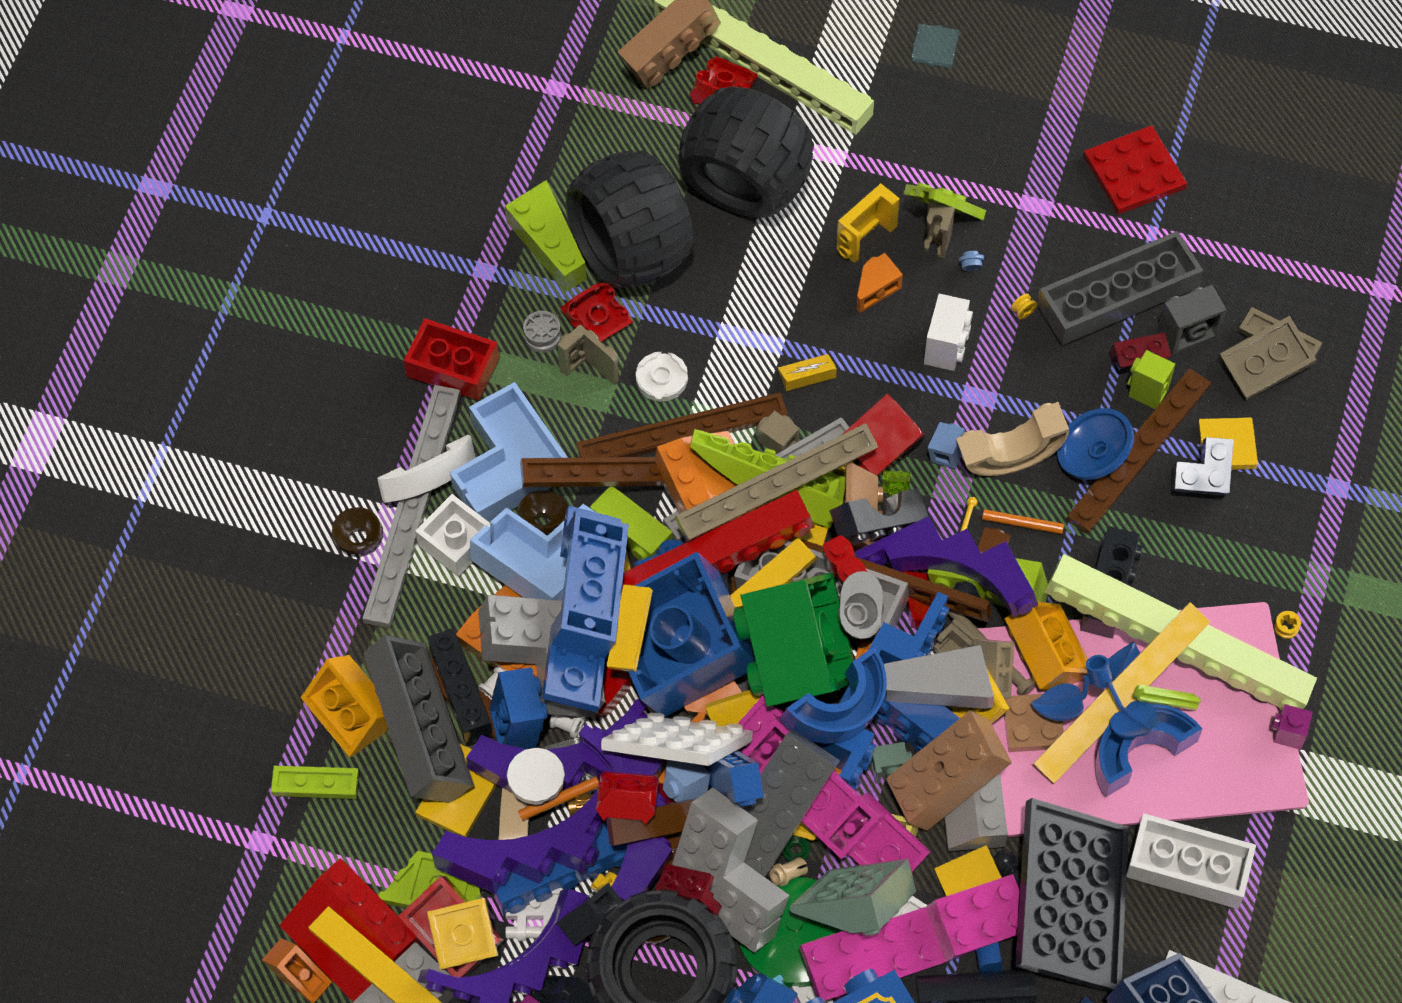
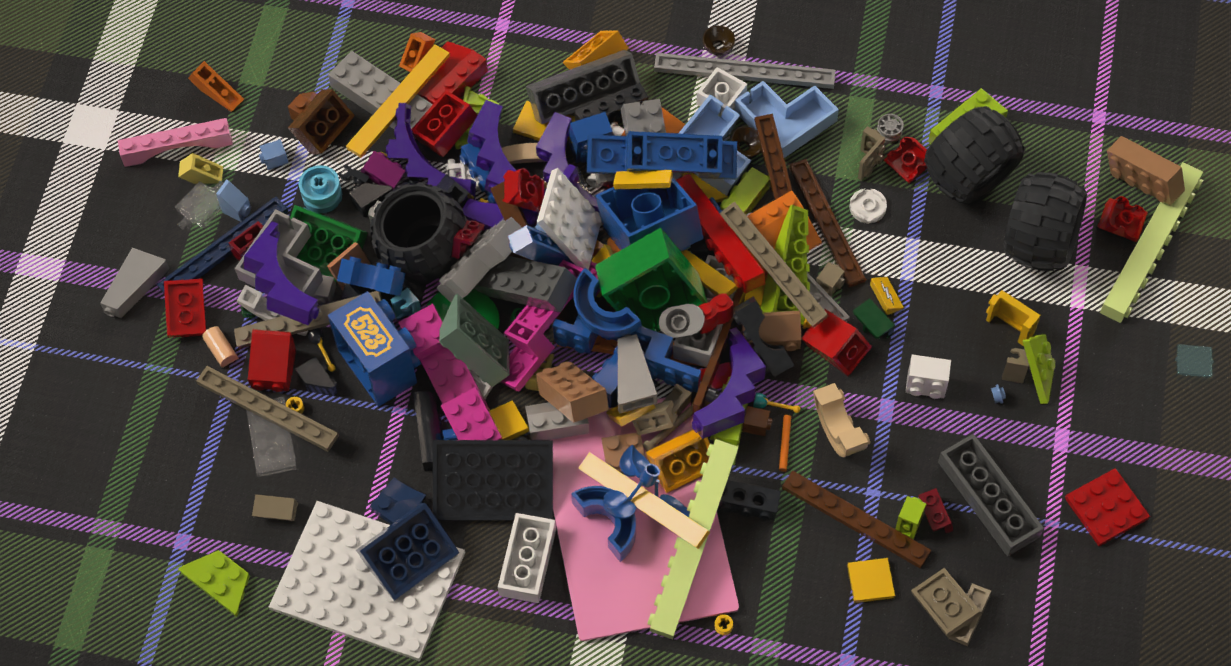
camera: 85 degrees right, 0 degrees up
(315, 782) = (541, 45): lime plate -> none
(427, 475) = (762, 72): white slope -> none
(451, 358) = (855, 75): red brick -> none
(462, 933) = (435, 124): yellow tile -> none
(535, 776) = (544, 150): white tile -> none
(562, 797) = (534, 168): orange bar -> none
(781, 874) = (500, 310): tan pin -> none
(850, 387) = (874, 319): none -> dark green panel
(878, 281) = (967, 331): orange slope -> none
(888, 759) = (586, 362): sand green brick -> none
(895, 482) = (801, 356): clear neon green plate -> none
(944, 445) = (842, 382): medium blue brick -> none
(1023, 306) = (964, 431): yellow bush -> none
(1096, 444) = (850, 482): blue dish -> none
(1166, 697) = (644, 531): lime axle -> none
(1192, 318) = (969, 544): dark grey brick -> none
(1211, 475) = (837, 562): brick -> none
(1291, 726) = (634, 621): magenta brick -> none

